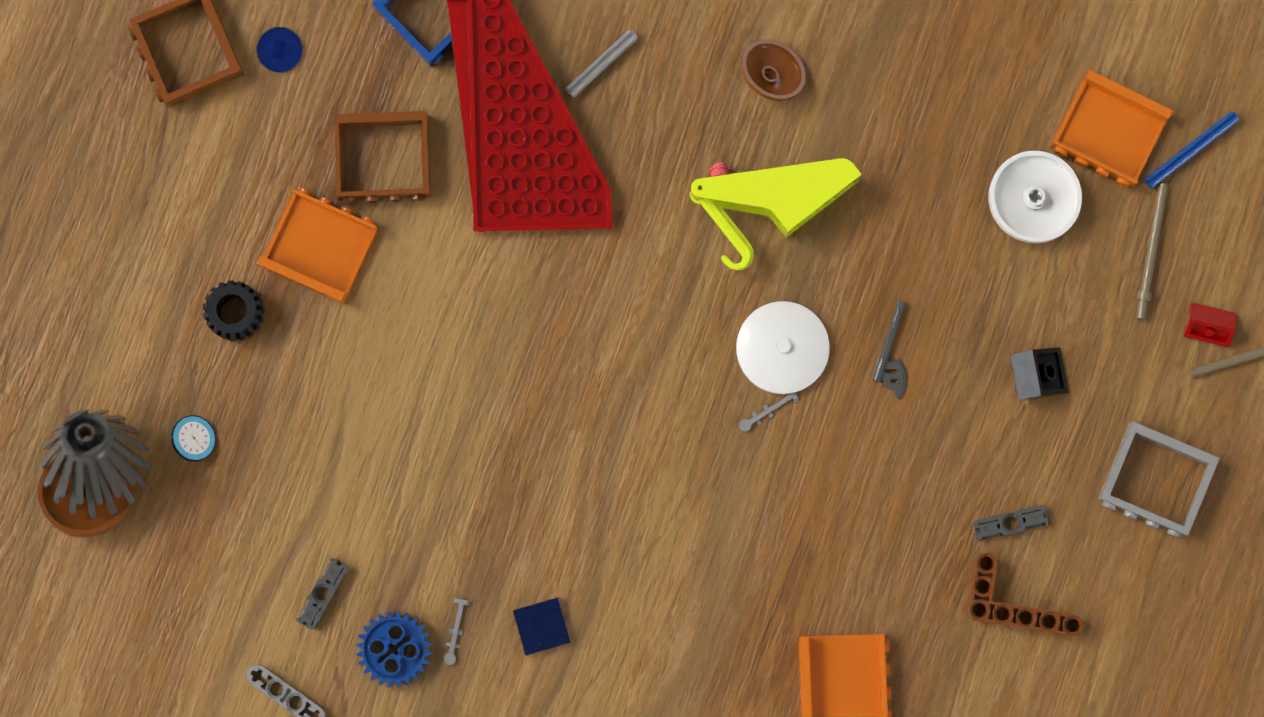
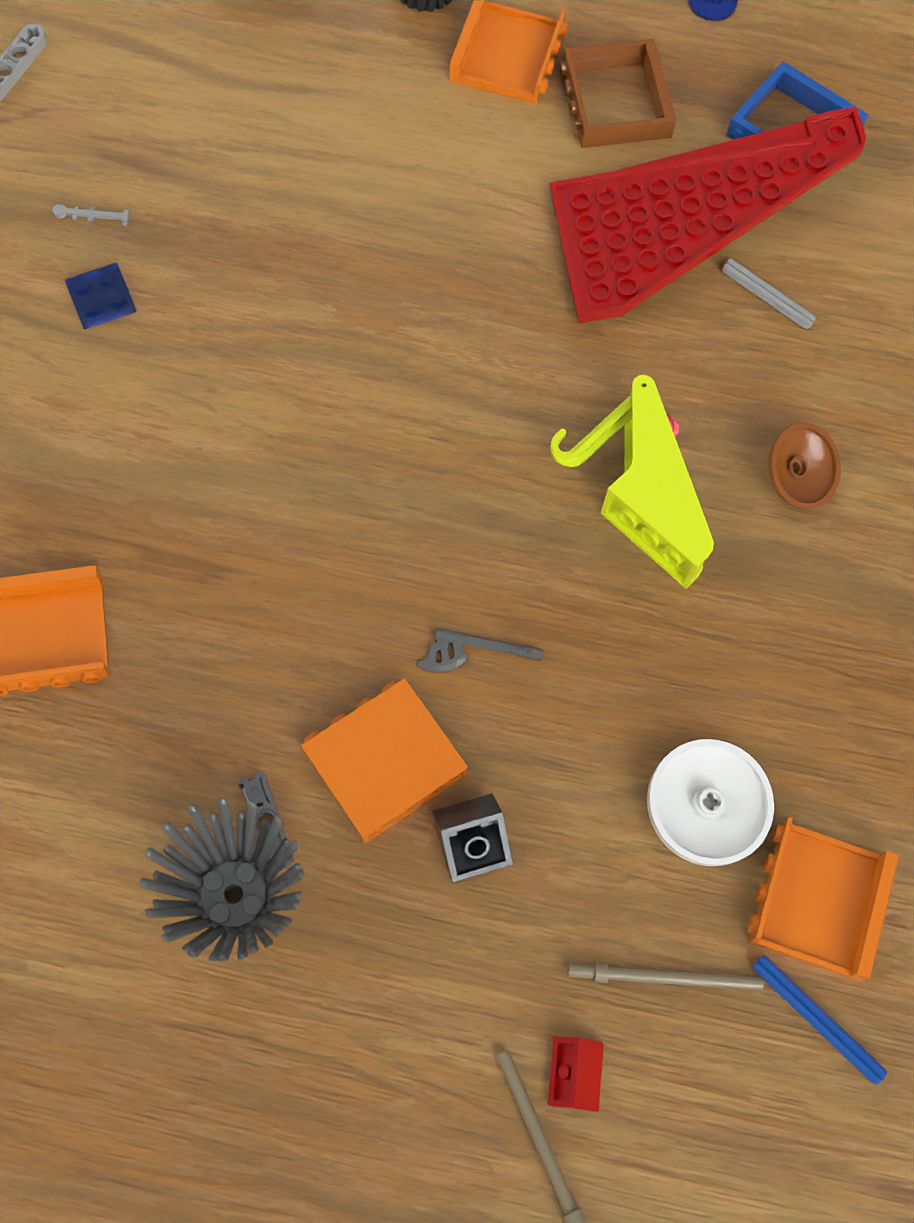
camera: 75 degrees right, 15 degrees down
(316, 608) = (140, 93): dark grey piece -> none
(406, 666) = (55, 164): blue gear -> none
(745, 424) = (361, 489): light grey piece -> none
(782, 347) = (463, 520): white dish -> none
(974, 431) = (384, 759): none -> orange panel
(1013, 611) = (146, 835): dark orange beam -> none
(1085, 542) = (217, 874): none -> dark grey plant
(1132, 511) = (285, 1016): light grey window -> none

